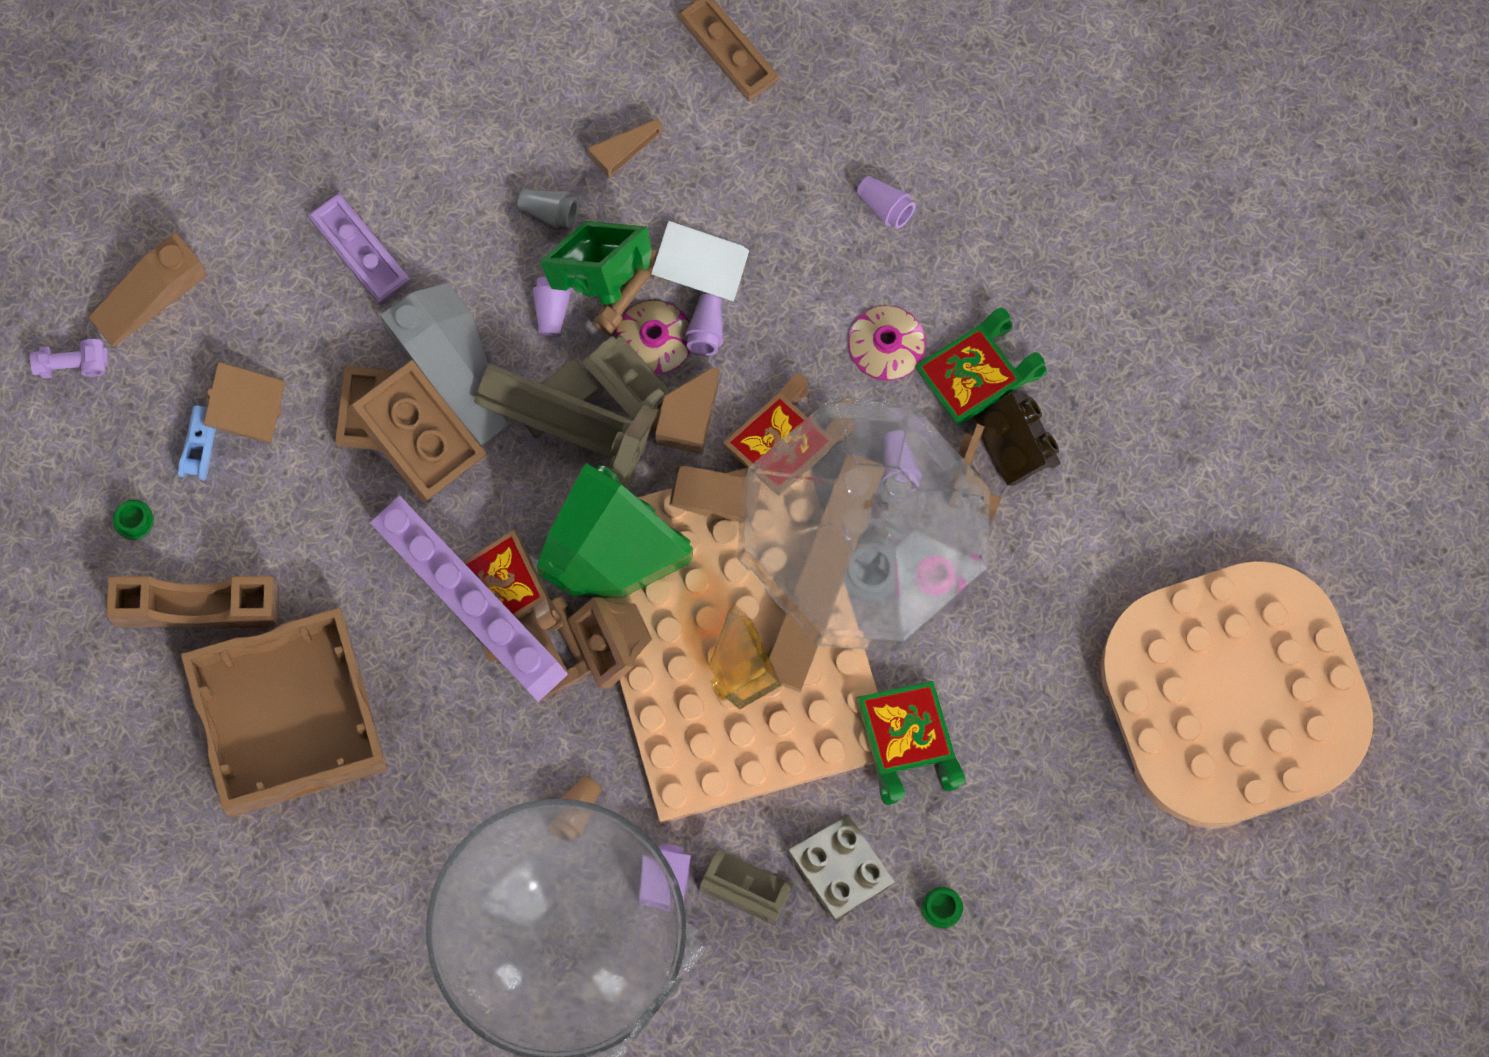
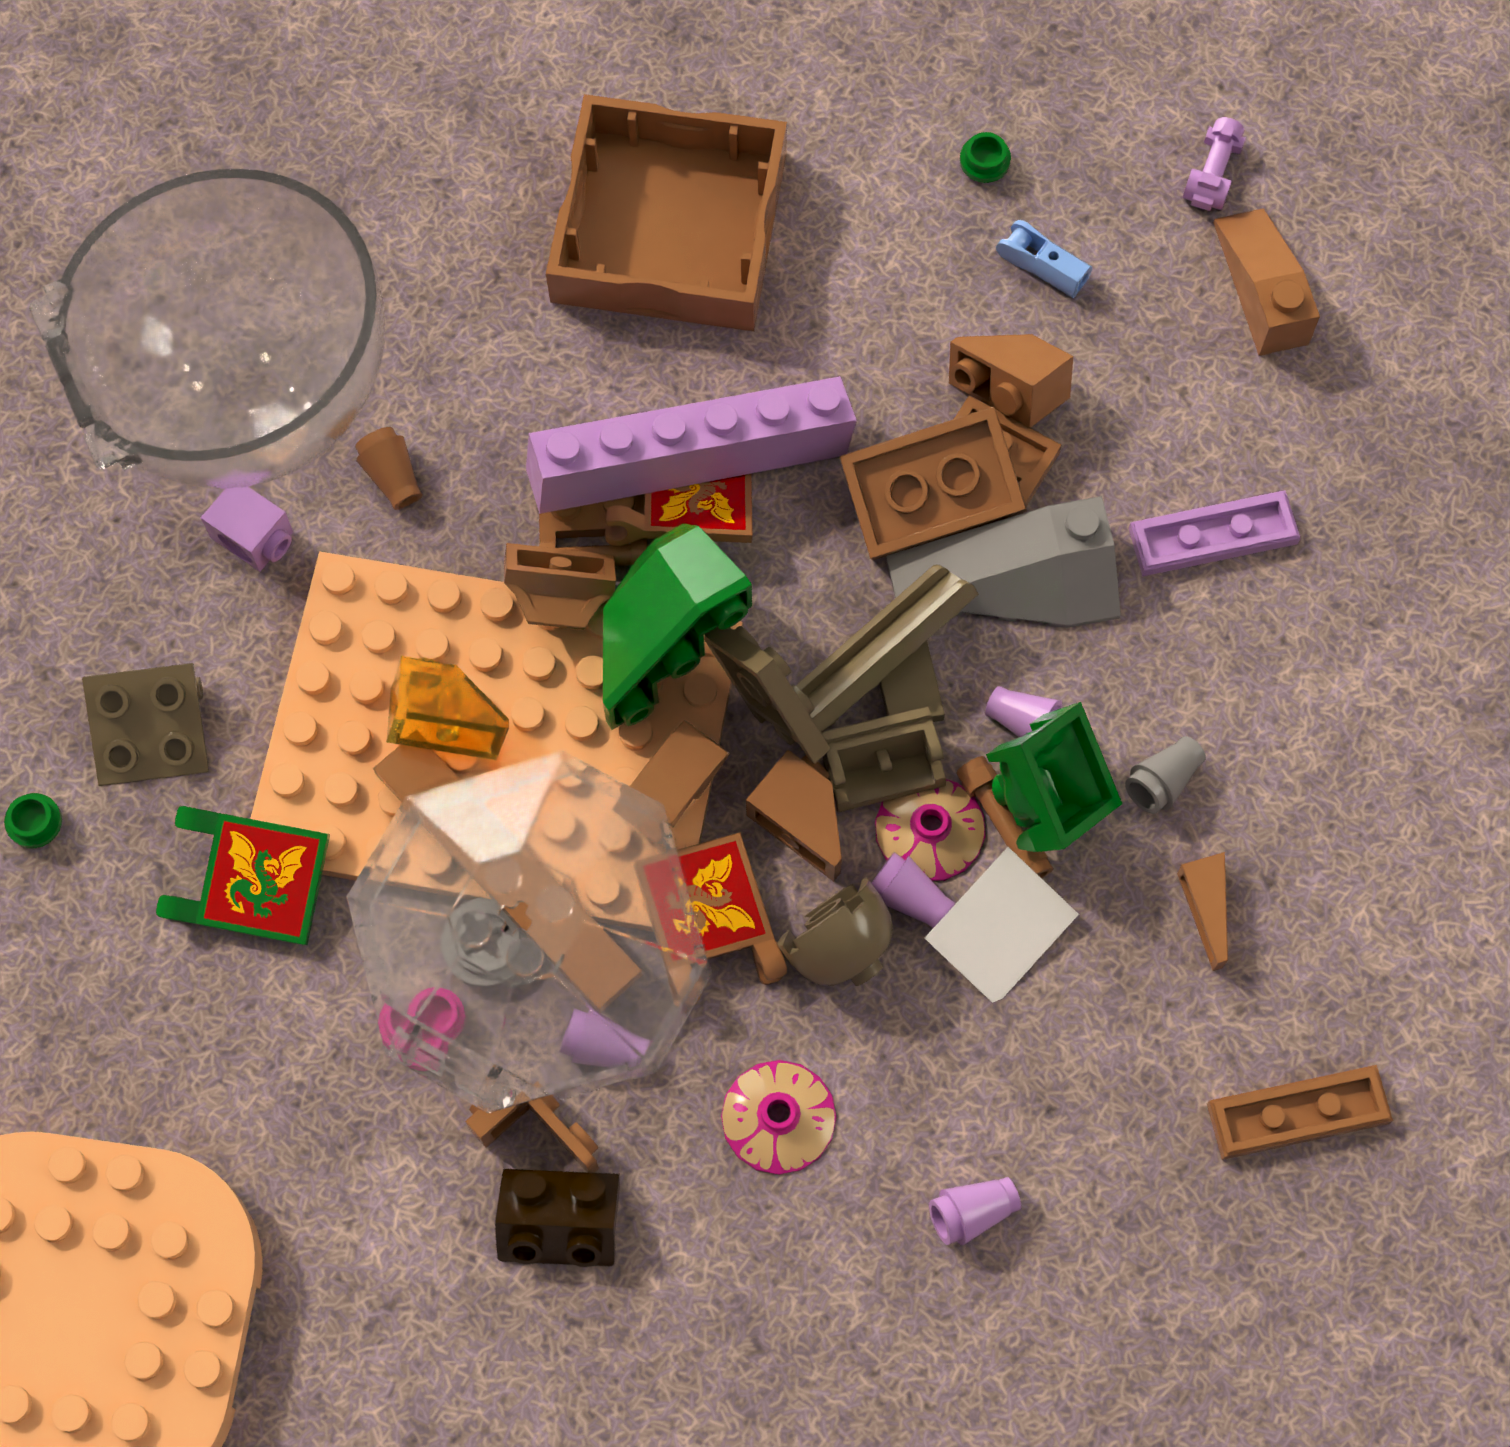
camera: 120 degrees right, 5 degrees down
(158, 603) = (866, 138): medium nougat arch -> none
(243, 403) = (1074, 316): medium nougat piece -> none
(307, 419) = (1012, 373): none -> medium nougat slope
(745, 887) = (187, 608): dark tan hinge -> none
(753, 346) = (842, 938): none -> dark tan cylinder
(975, 371) = (674, 1202): flag -> none

